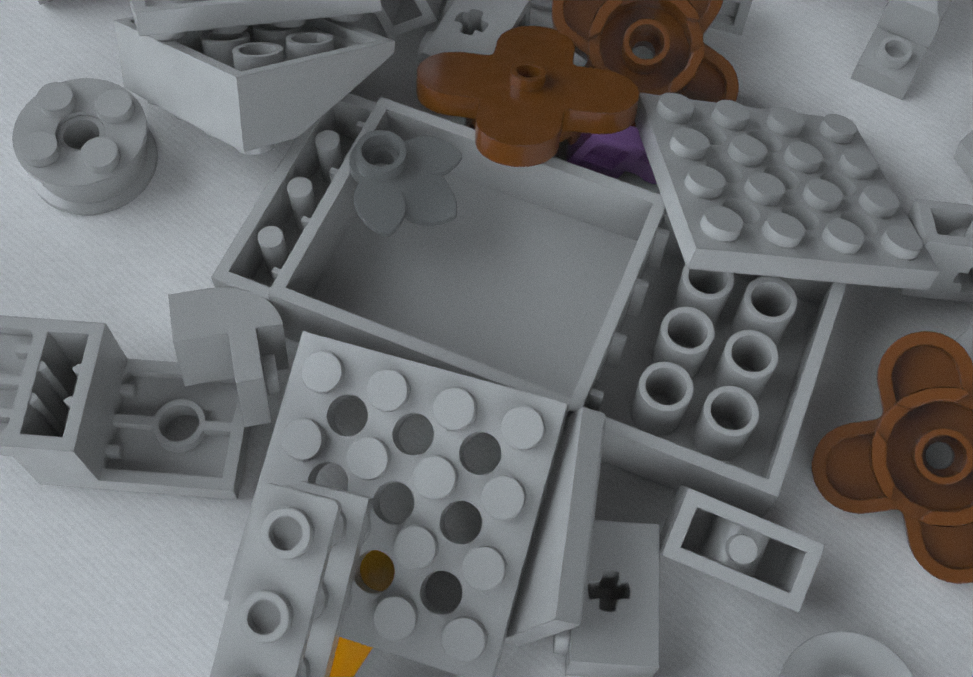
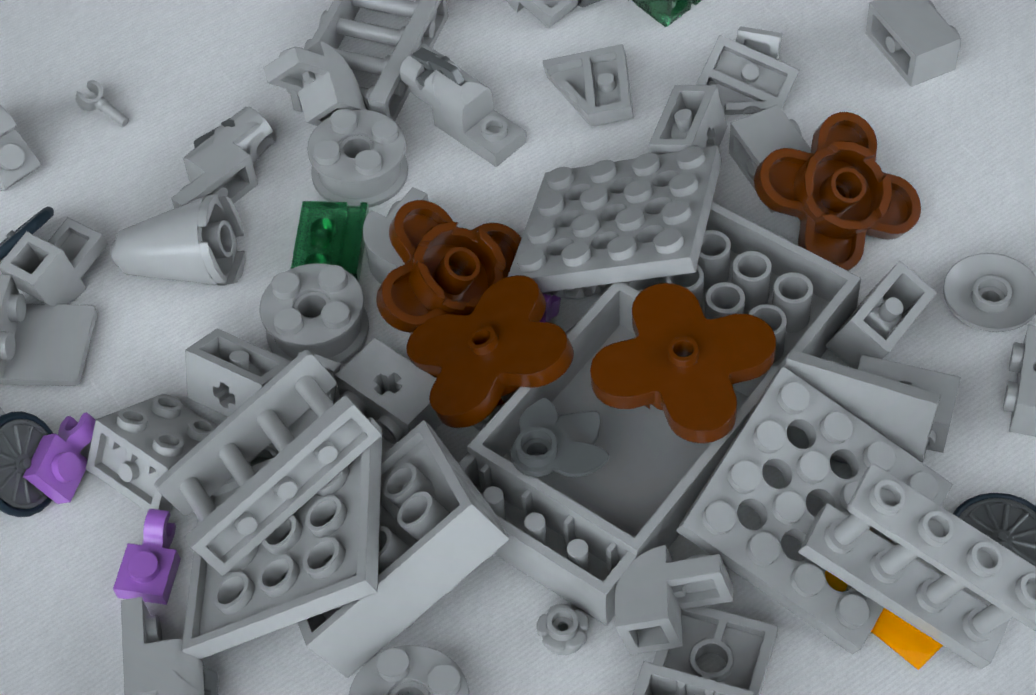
camera: 70 degrees left, 10 degrees down
(195, 262) = (565, 641): none -> light grey plate
(543, 286) = (683, 362): none -> reddish brown plant

